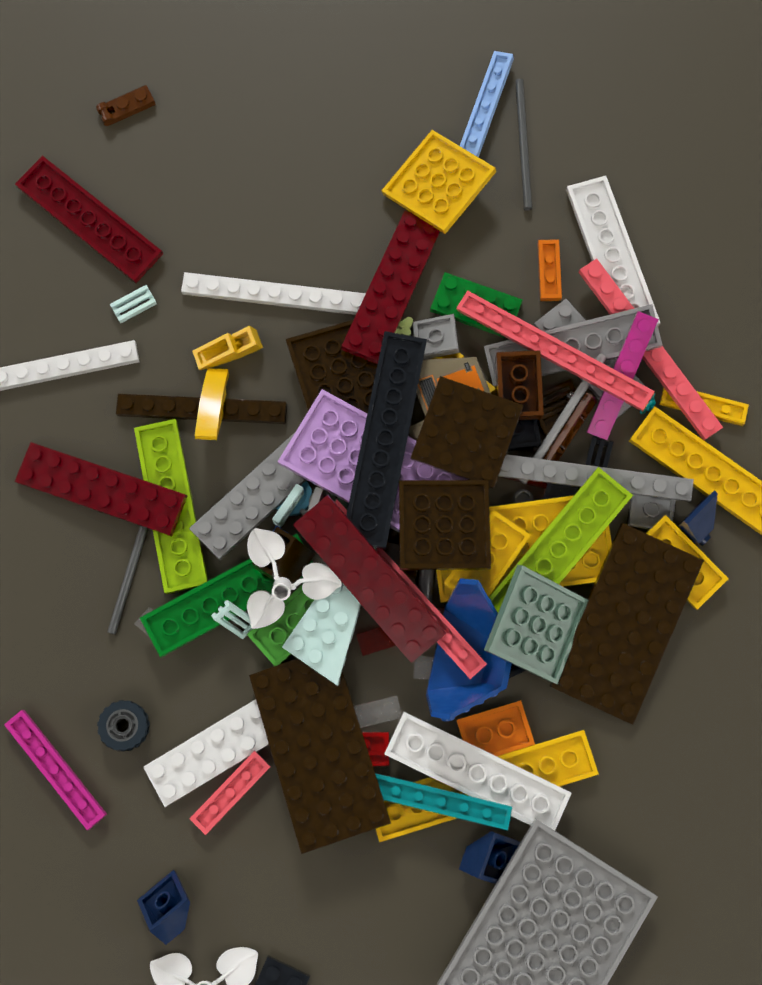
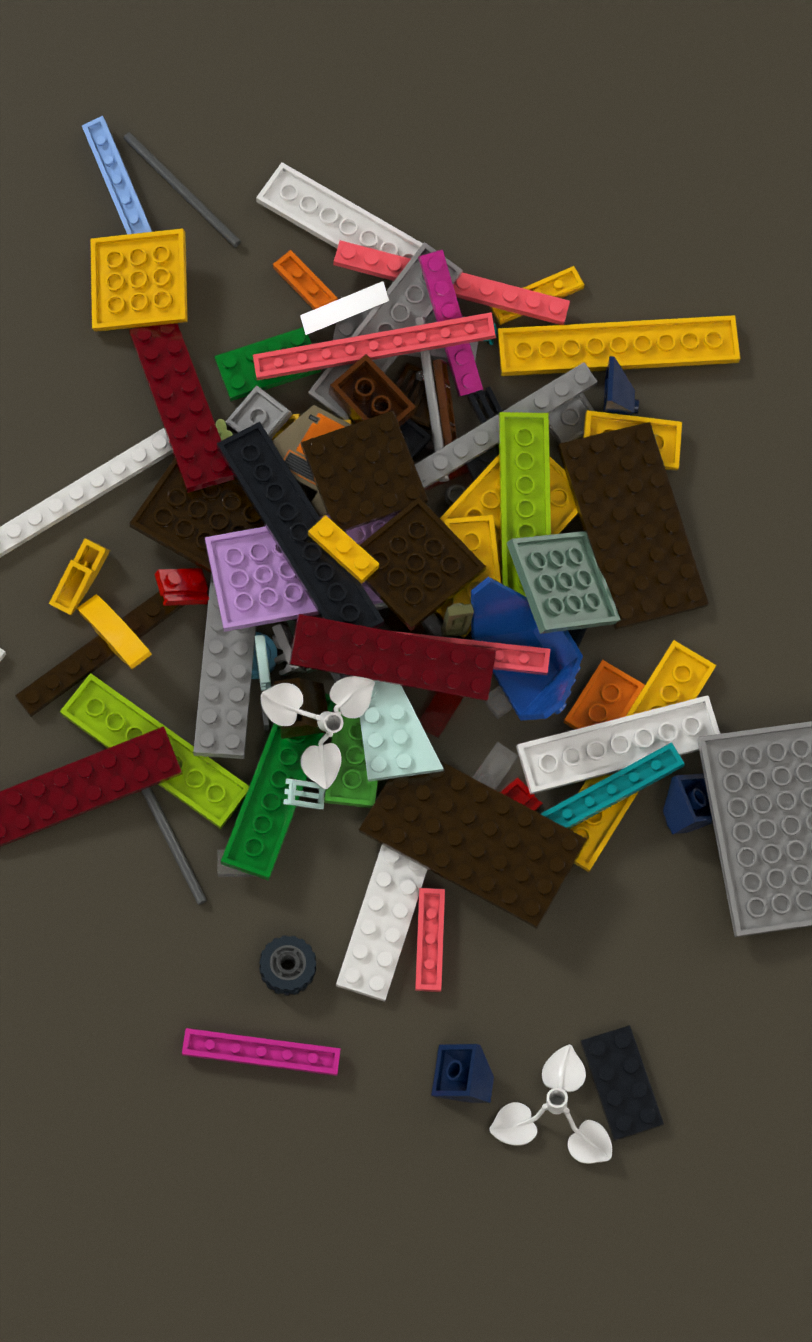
camera: 50 degrees left, 5 degrees down
(283, 410) = (182, 586): none -> red plate
(402, 474) = (343, 549): none -> yellow plate
(440, 588) = (457, 620): none -> olive plate
(559, 307) = (344, 308): none -> white sticker

